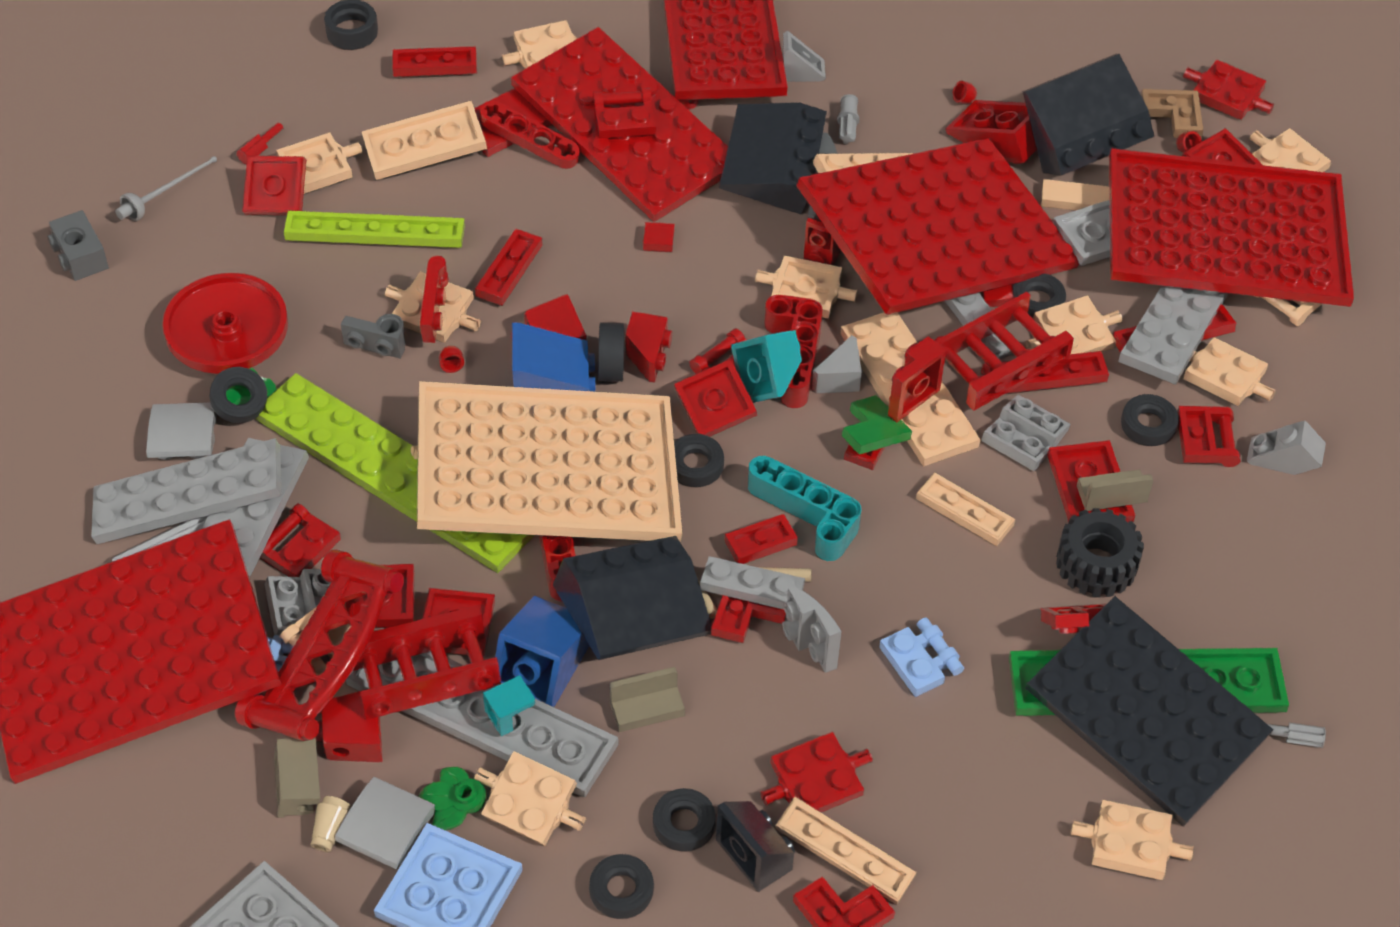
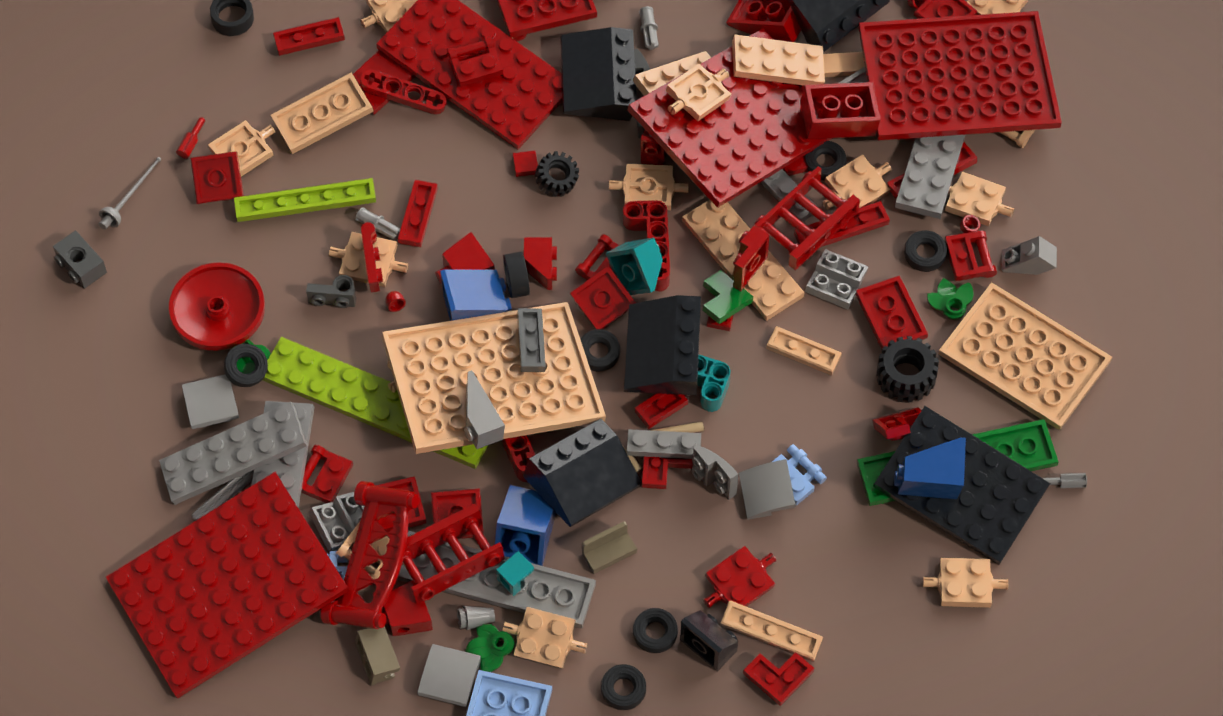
camera: 10 degrees left, 10 degrees up
(327, 822) = (409, 683): tan cone -> none
(440, 753) = (472, 617): none -> light grey cone
(457, 270) = (380, 224): none -> light grey axle
(514, 500) = (482, 419): none -> light grey slope
(608, 426) = (531, 340): none -> dark grey plate
(688, 264) = (561, 163): none -> black tyre
(780, 463) = (663, 346): none -> black slope
(839, 371) = (690, 255): light grey slope -> none
(878, 665) = (767, 489): none -> light grey slope
(890, 179) = (698, 92): none -> light nougat plate
(1000, 172) = (777, 61): none -> light nougat plate
(1067, 234) = (840, 110): none -> red brick
(1111, 676) = (933, 471): none -> blue slope
(1114, 489) = (909, 317): dark tan panel -> none
(1174, 483) = (951, 296): none -> green plate
(1213, 396) = (969, 222): none -> red hinge
(1263, 567) = (1025, 356): none -> light nougat plate

